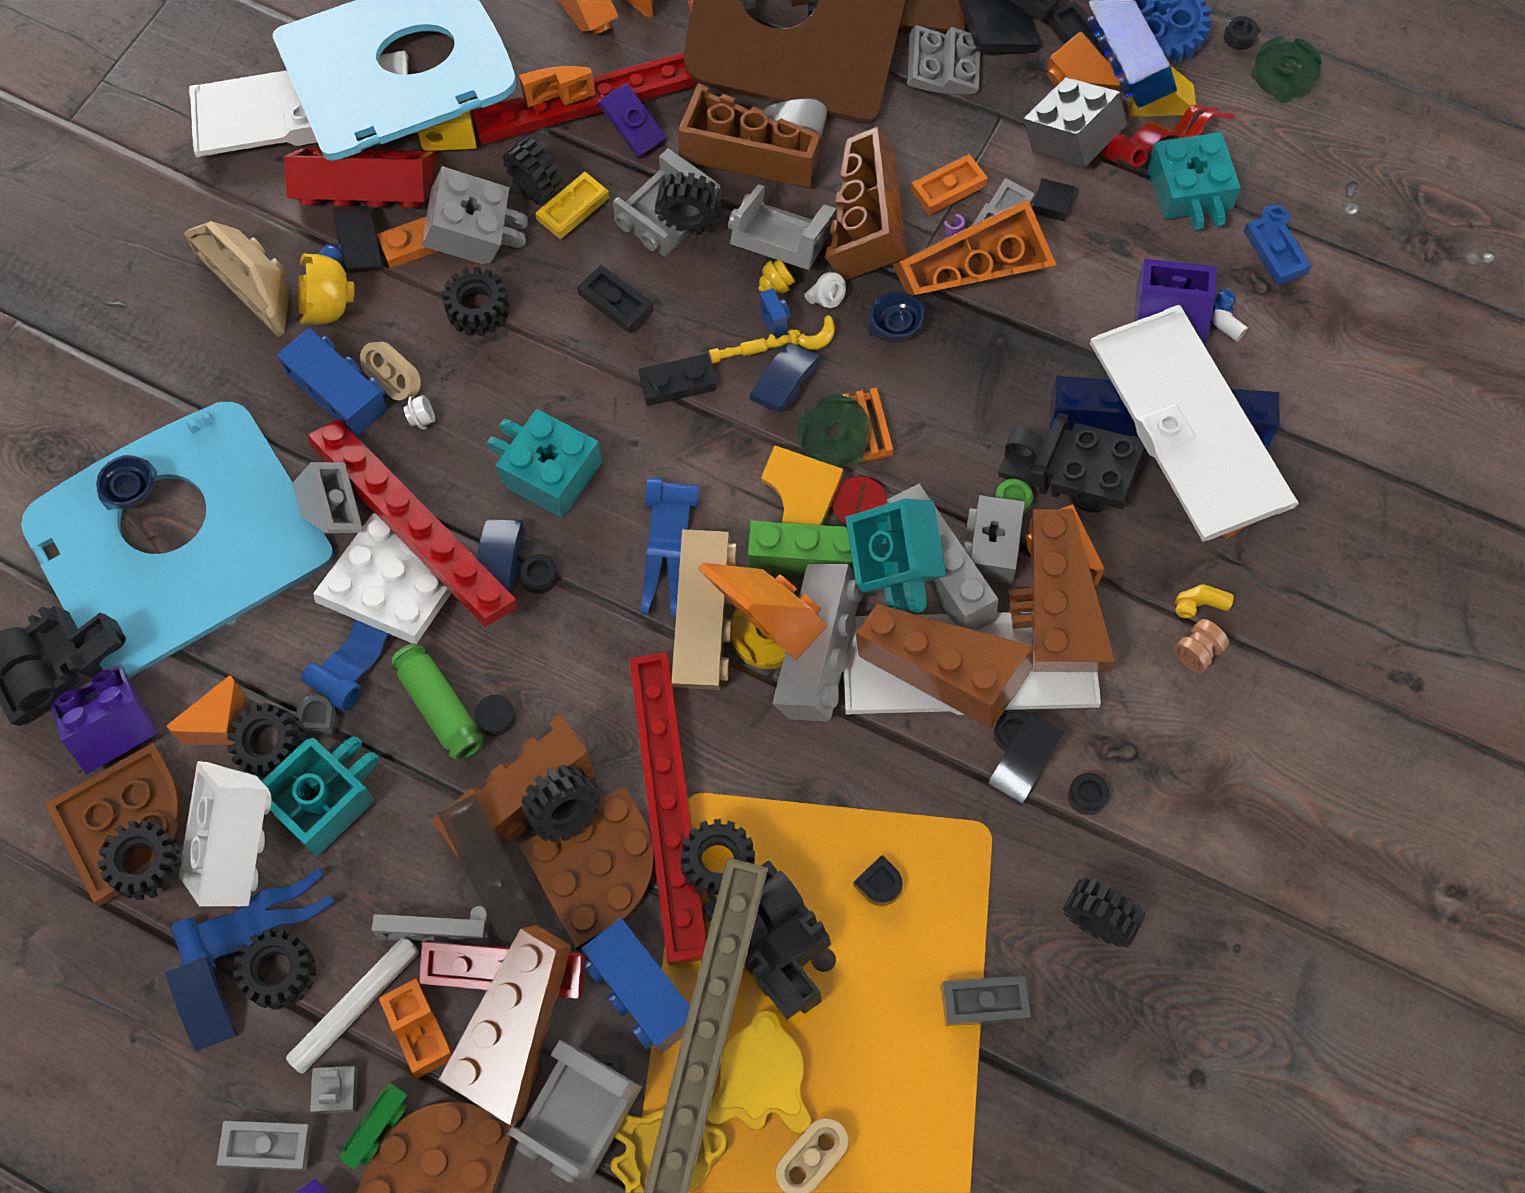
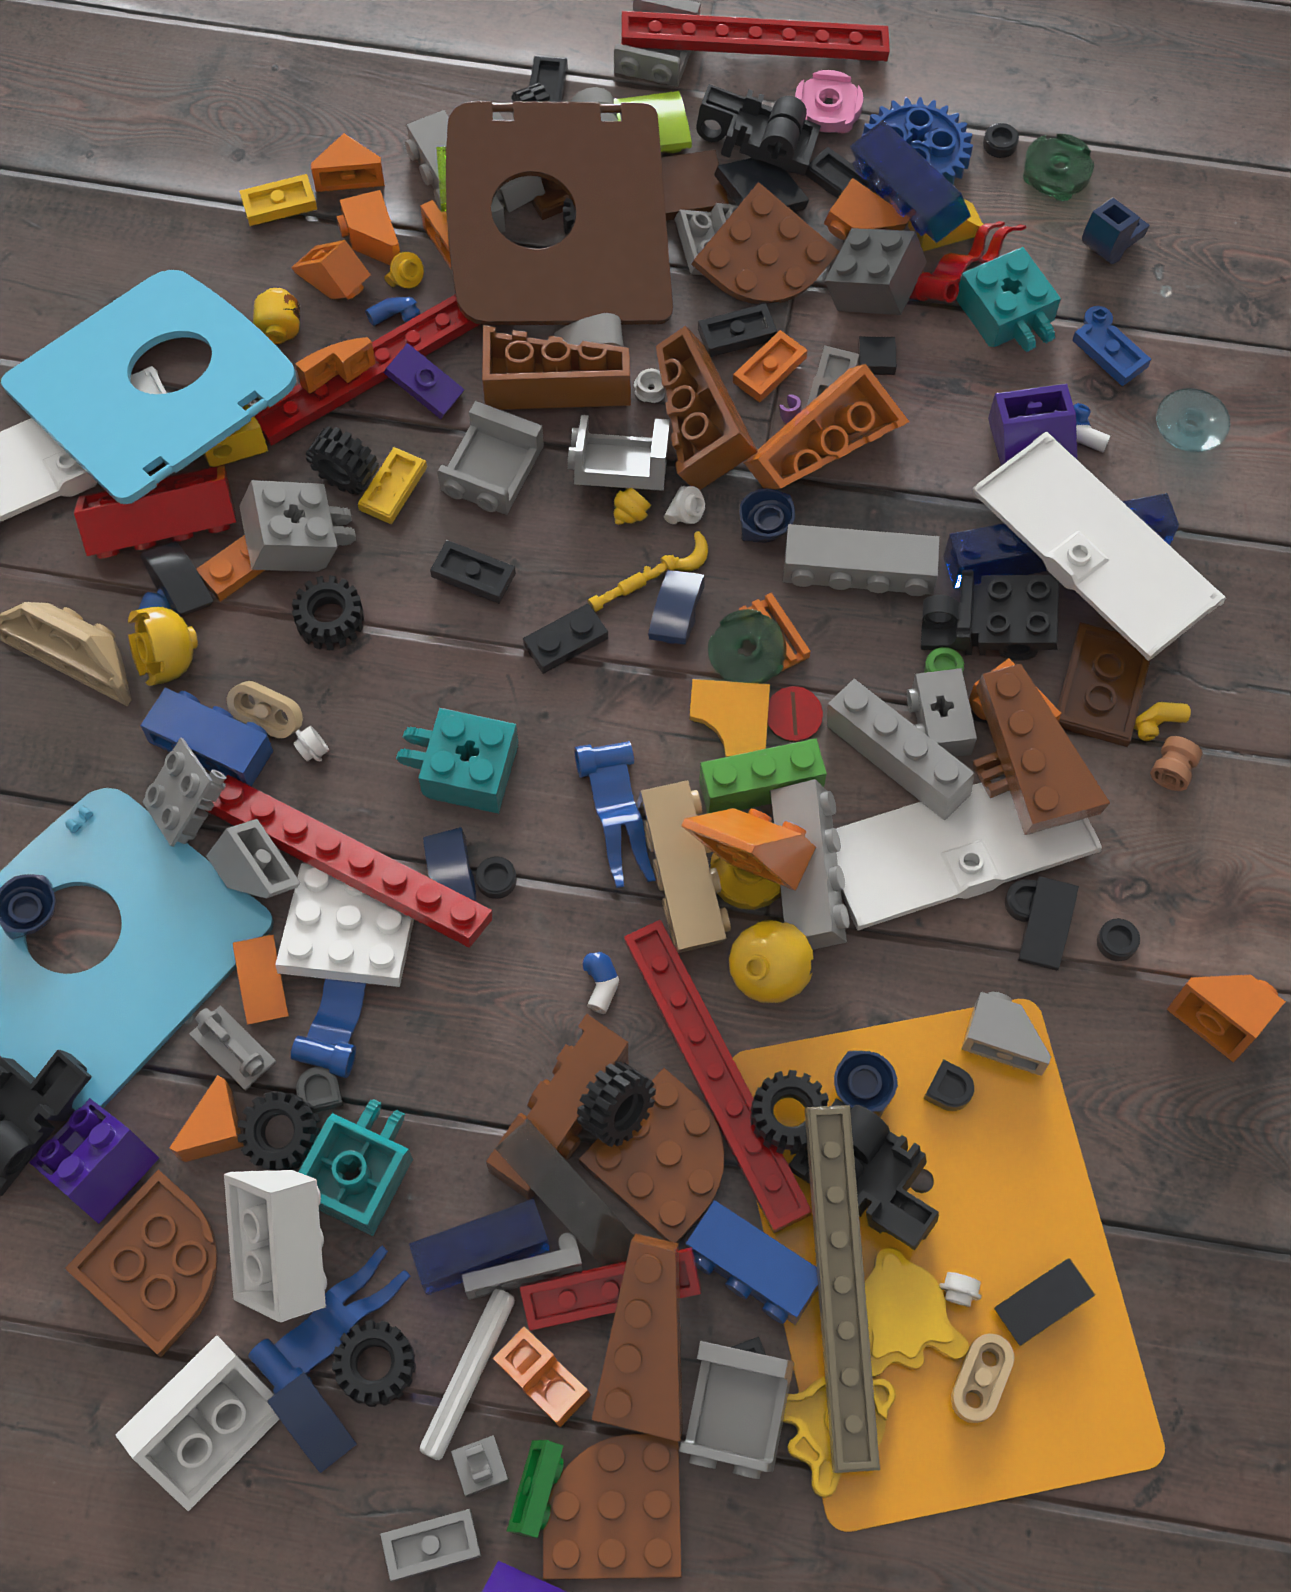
camera: 20 degrees left, 0 degrees up
(106, 974) = (200, 1423): none -> white slope
(122, 845) = (172, 1280): black tyre -> none
(256, 654) = (231, 1046): none -> light grey hinge
(291, 425) = (182, 794): none -> light grey hinge
(297, 609) = (258, 979): none -> orange slope
(401, 892) = (478, 1245): none -> clear blue brick
(437, 702) = (442, 1039): bright green axle -> none
(494, 715) = (504, 1035): black tile -> none
(525, 33) = (277, 315): none -> yellow head
(601, 689) = (606, 980): none -> arm
(628, 50) = (391, 307): none -> blue arm
(652, 21) = (405, 270): none -> yellow plate
(688, 202) = (518, 452): black tyre -> none
(751, 718) = (771, 961): none -> yellow cylinder
(774, 312) = (642, 543): blue plate -> none
(800, 853) = (865, 1081): none -> dark blue hat
(821, 1070) = (961, 1289): none -> white plate
(831, 169) = (646, 379): none -> white plate
(896, 1106) = (1044, 1301): none -> black slope
(897, 551) = (859, 751): teal hinge -> none
(930, 144) = (737, 330): none -> black plate
(945, 847) = (1005, 1034): none -> light grey slope
(949, 662) = (943, 848): dark orange wedge -> none
(969, 379) = (861, 559): none -> light grey brick
(979, 80) = (764, 252): none -> dark orange plate
(985, 1001) = (1093, 1171): dark grey plate -> none
(1104, 912) = (1178, 1050): black tyre -> none
(1156, 556) = (1102, 685): none -> reddish brown tile
(1165, 887) = (1227, 1010): none -> orange slope
(1316, 137) = (1113, 230): none -> dark blue brick
(1339, 323) = (1195, 409): none -> clear light blue dish

